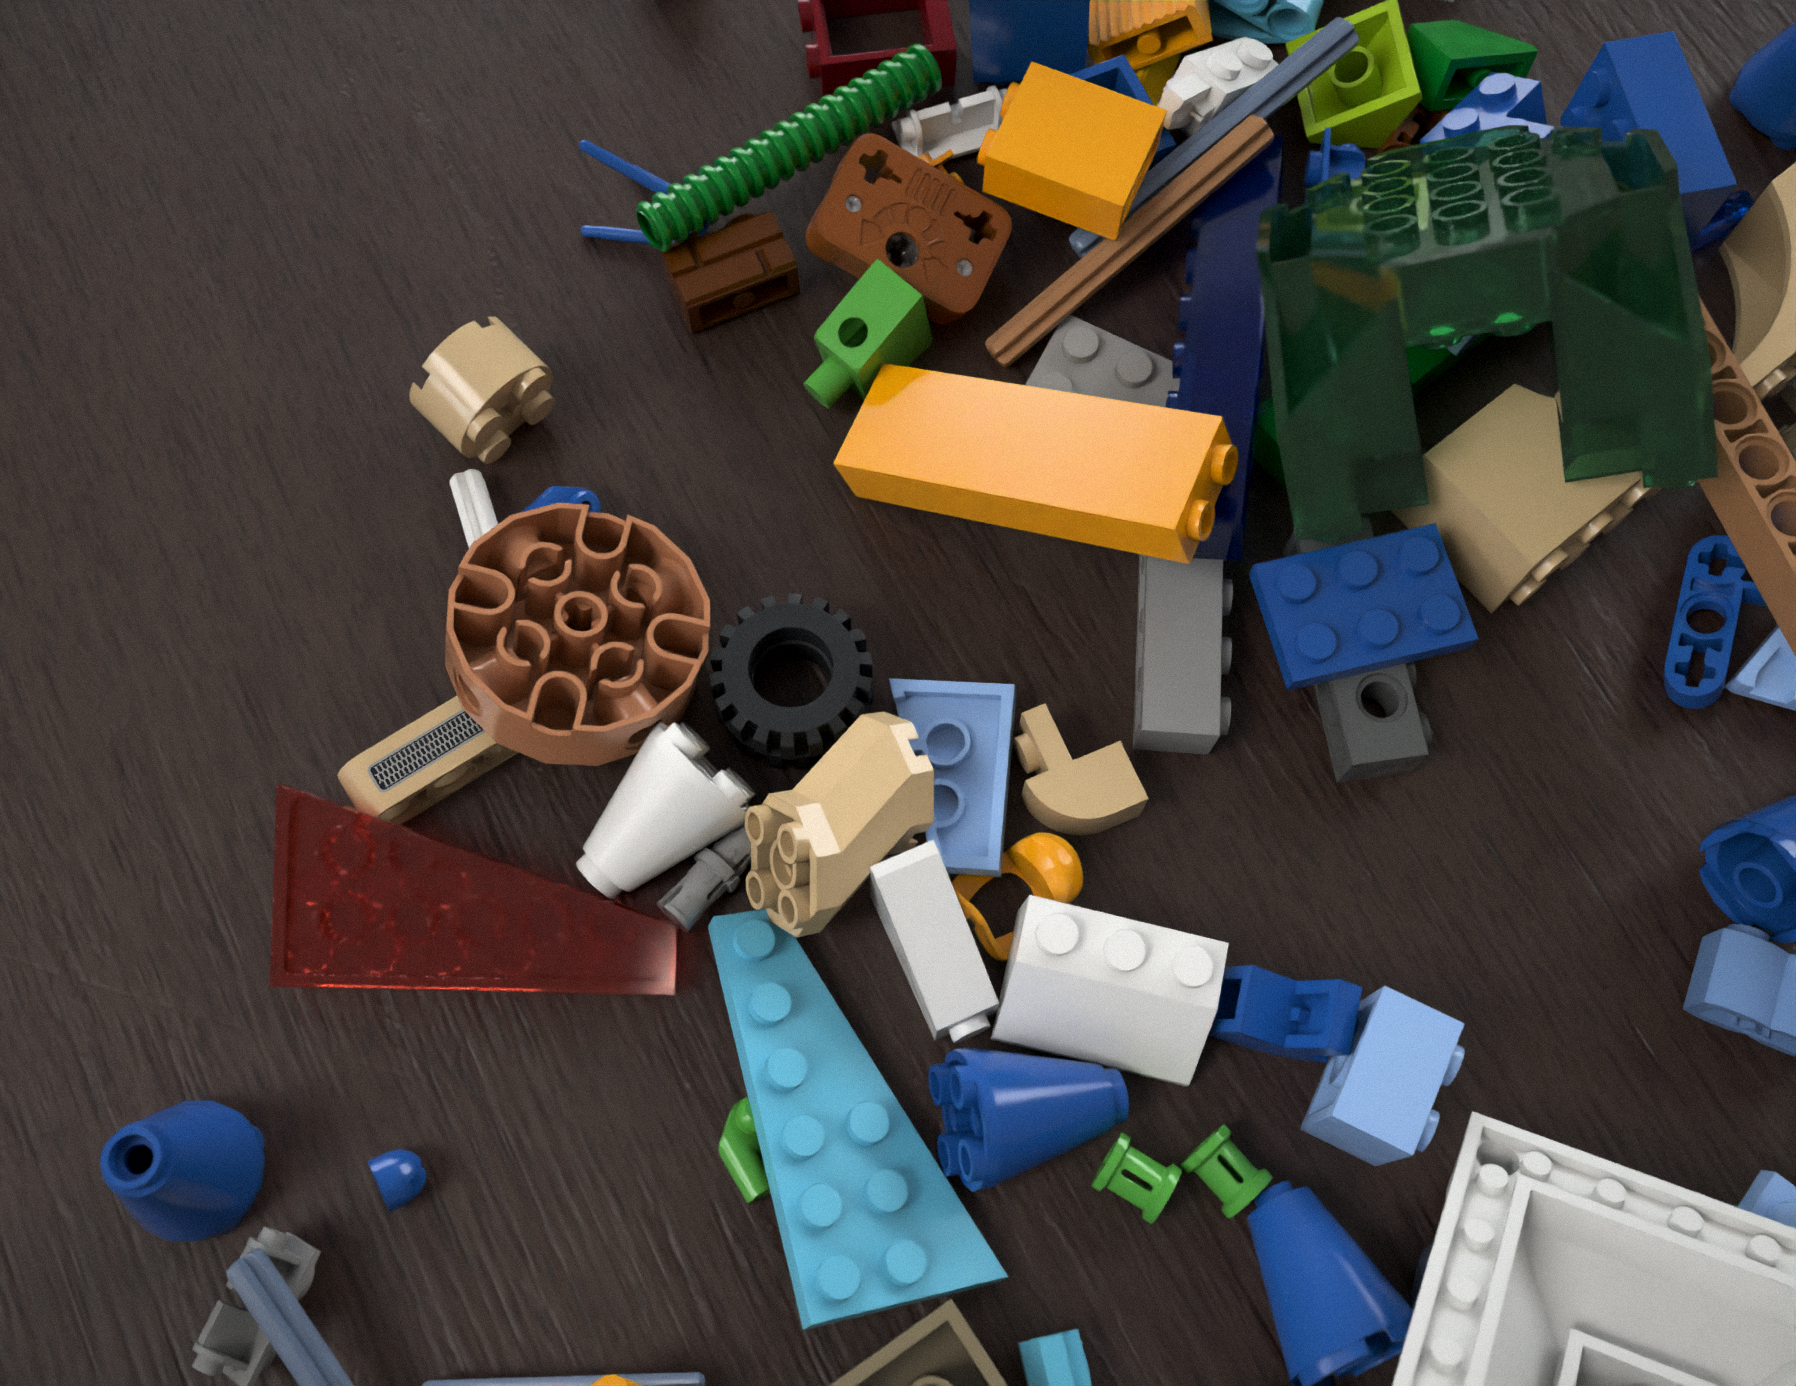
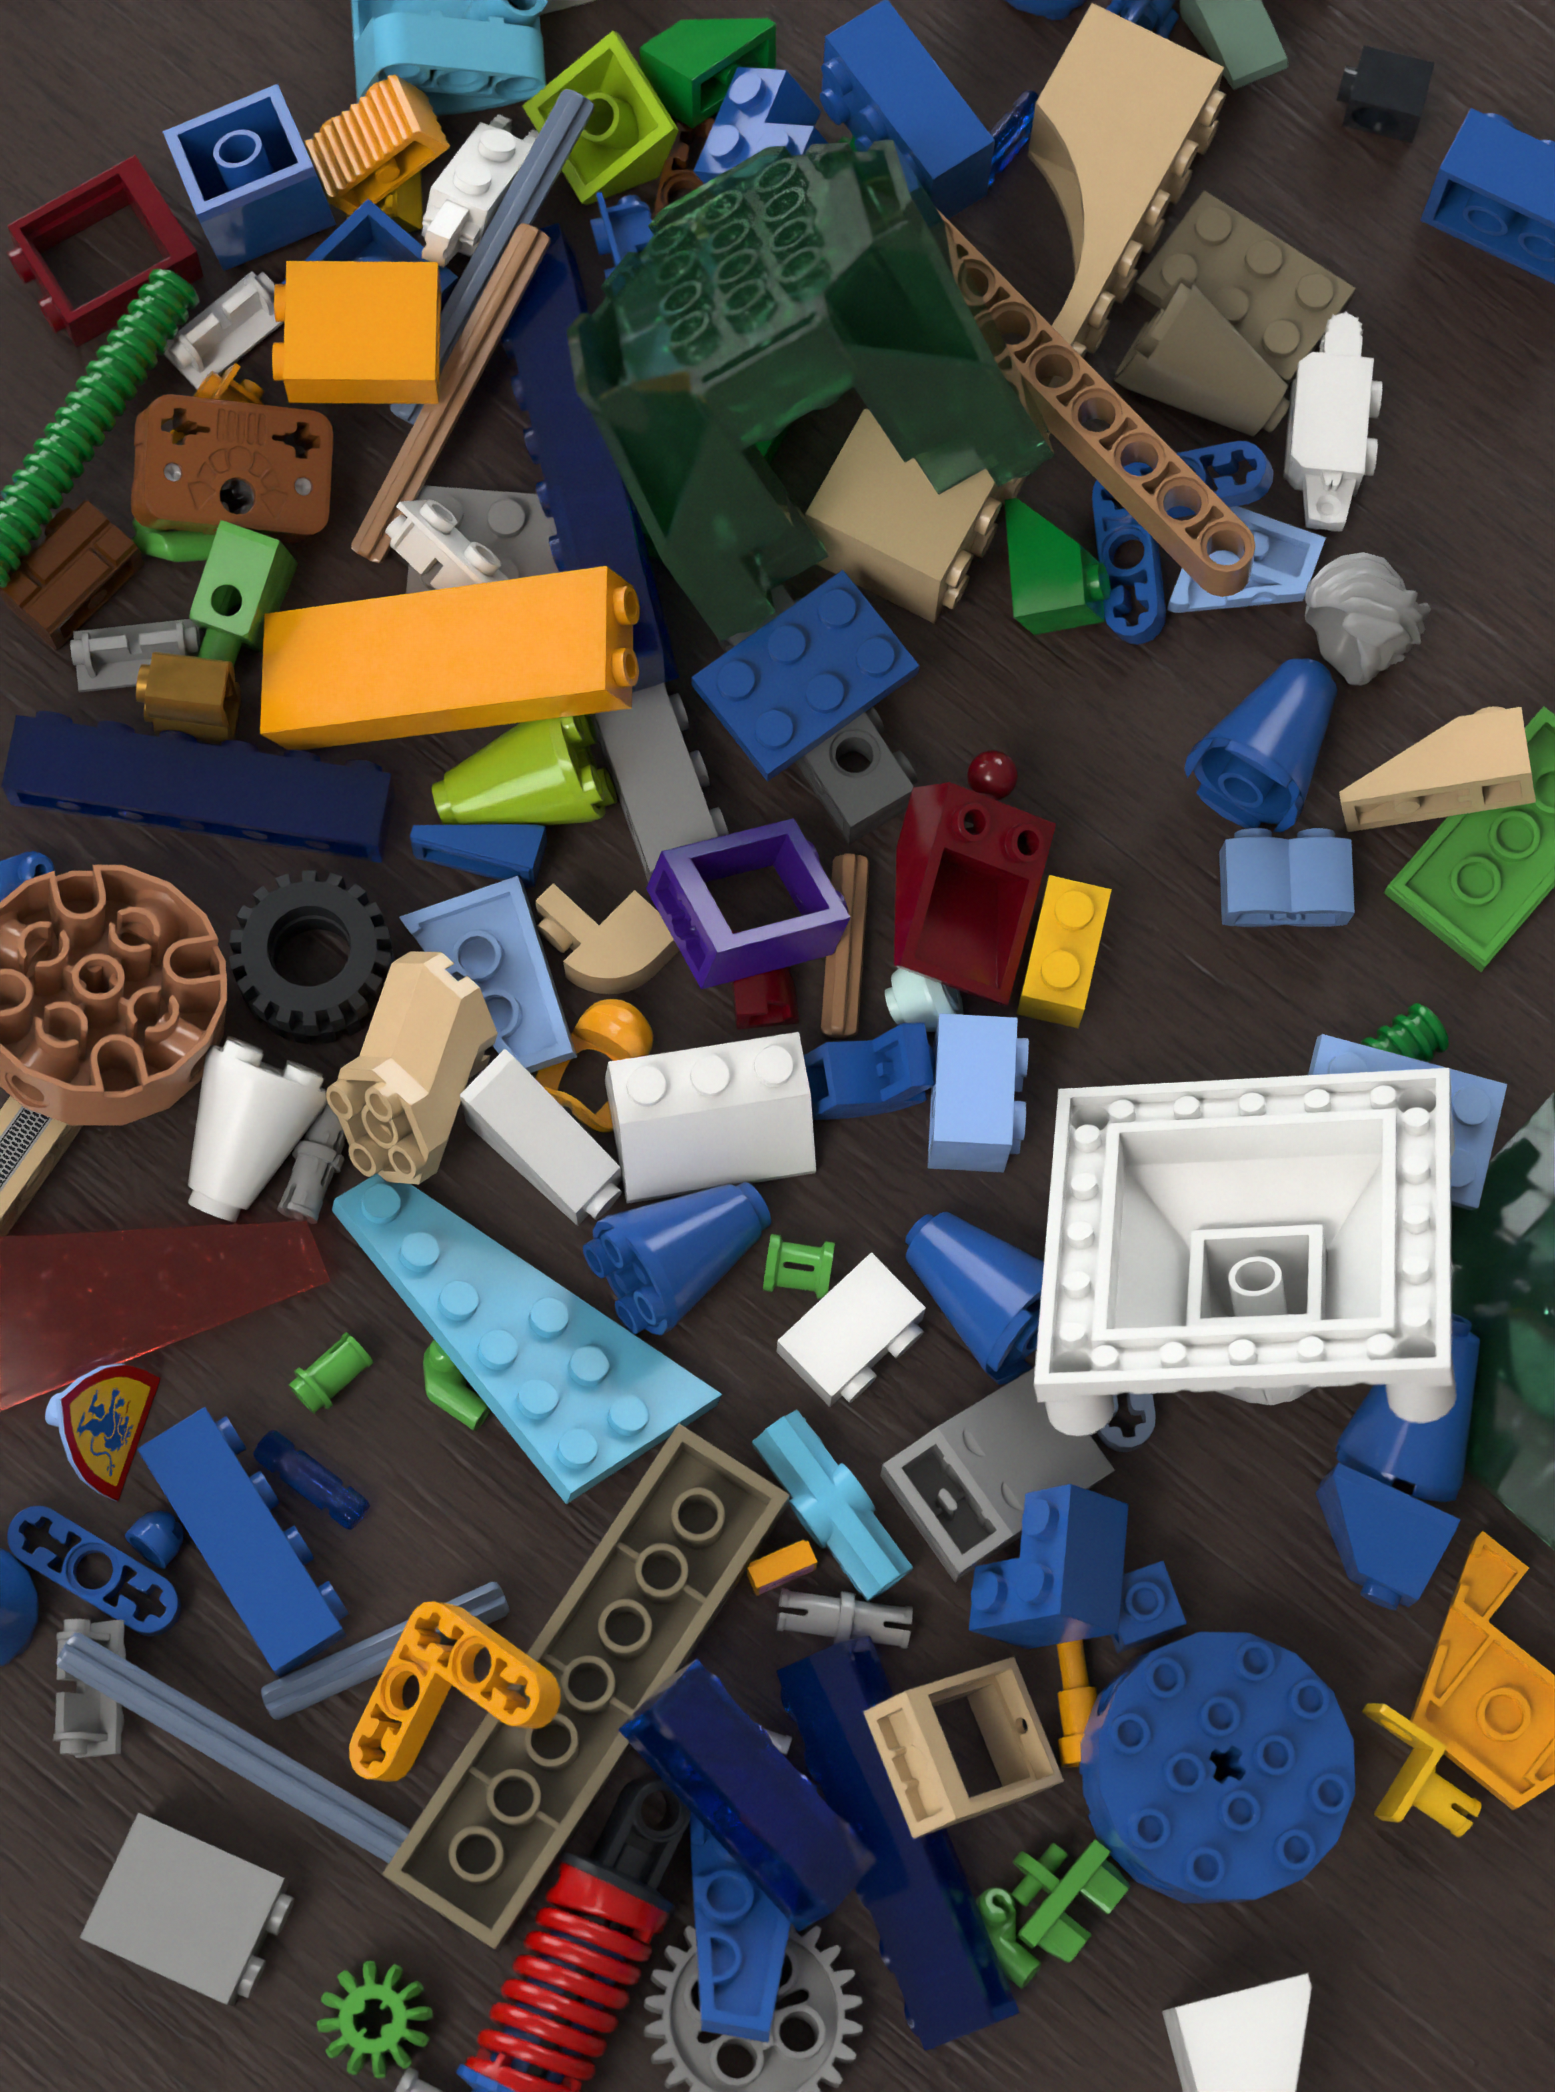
camera: 25 degrees left, 5 degrees up
(336, 1237) = (62, 1531): none -> blue beam
(393, 1042) = (103, 1422): none -> shield
(475, 1223) = (243, 1542): none -> blue brick
(571, 1185) = (311, 1479): none -> clear blue axle
(634, 1086) = (330, 1373): none -> bright green pin
(756, 360) = (114, 654): none -> light grey hinge
(762, 492) = (199, 786): none -> clear blue brick
(785, 407) = (190, 696): none -> pearl gold brick
(824, 278) = (172, 545): none -> bright green arm
(993, 647) = (484, 850): none -> blue slope
(1059, 354) = (432, 536): none -> white hinge
(1061, 599) = (529, 776): none -> lime cone
(1165, 1271) = (852, 1332): none -> white brick
(1173, 808) = (699, 926): none -> dark purple window
(1203, 878) = (765, 999): none -> dark red brick
(1226, 1171) = (873, 1228): bright green bush -> none
(1299, 878) = (845, 966): none -> medium nougat axle
(1363, 952) = (920, 999): none -> light aqua cone
(1453, 863) = (972, 889): none -> dark red slope
(1519, 972) = (1064, 951): none -> yellow brick
(1630, 608) = (1051, 574): none -> green slope

